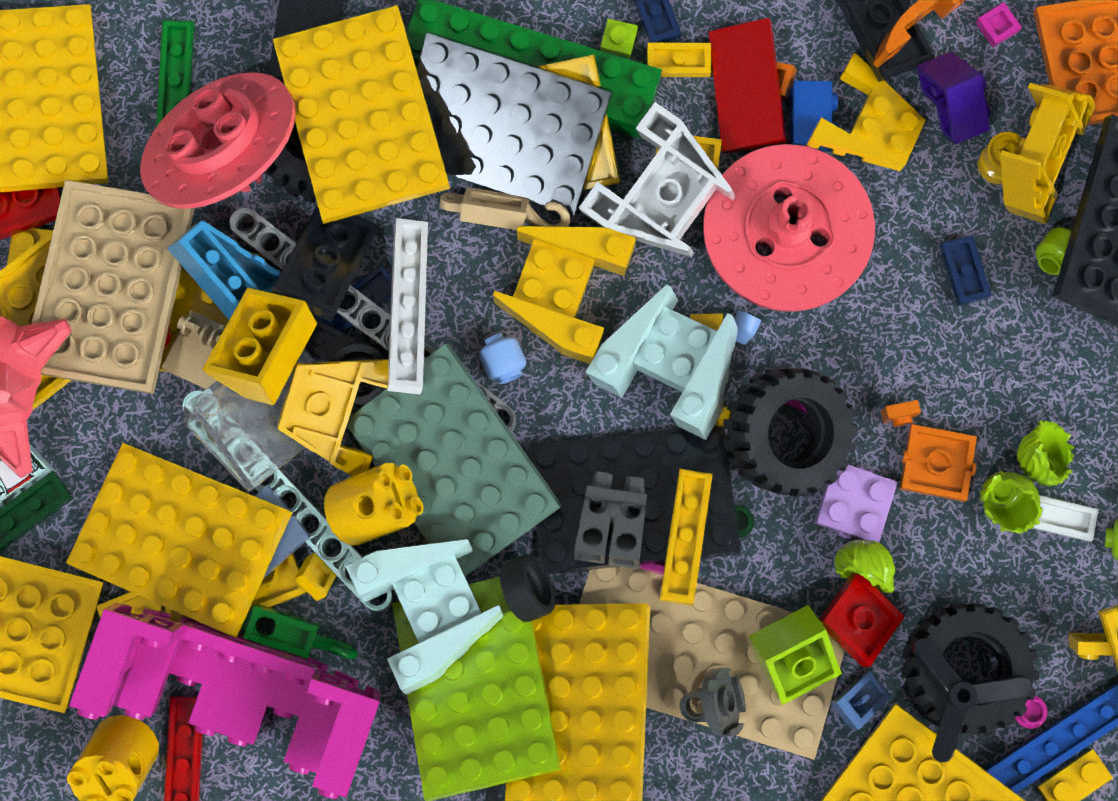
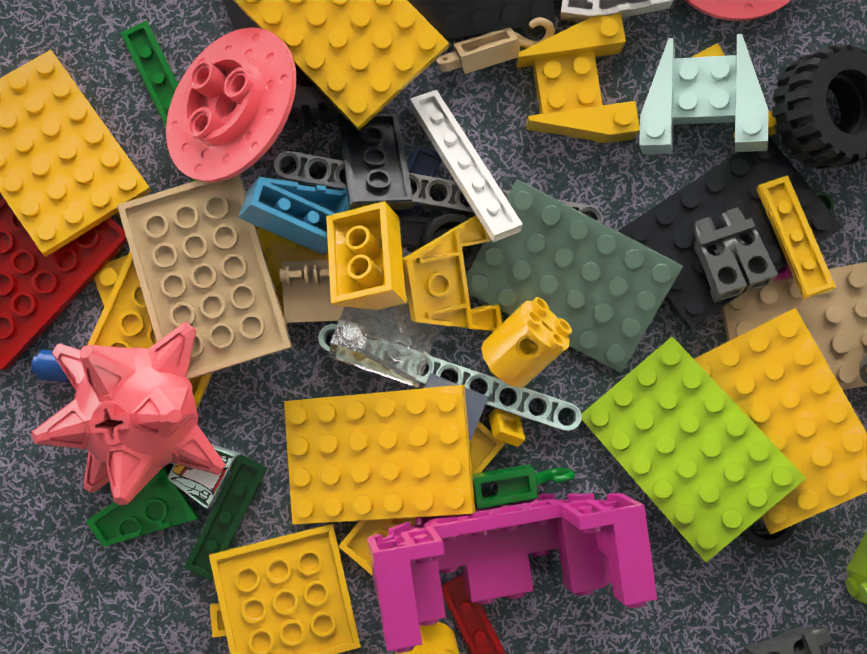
camera: 30 degrees left, 5 degrees up
(434, 601) = (625, 398): light aqua wedge -> none
(502, 358) = (561, 170): light blue head -> none
(527, 588) = (691, 346): black tyre -> none
(747, 326) = (732, 41): light blue hose -> none

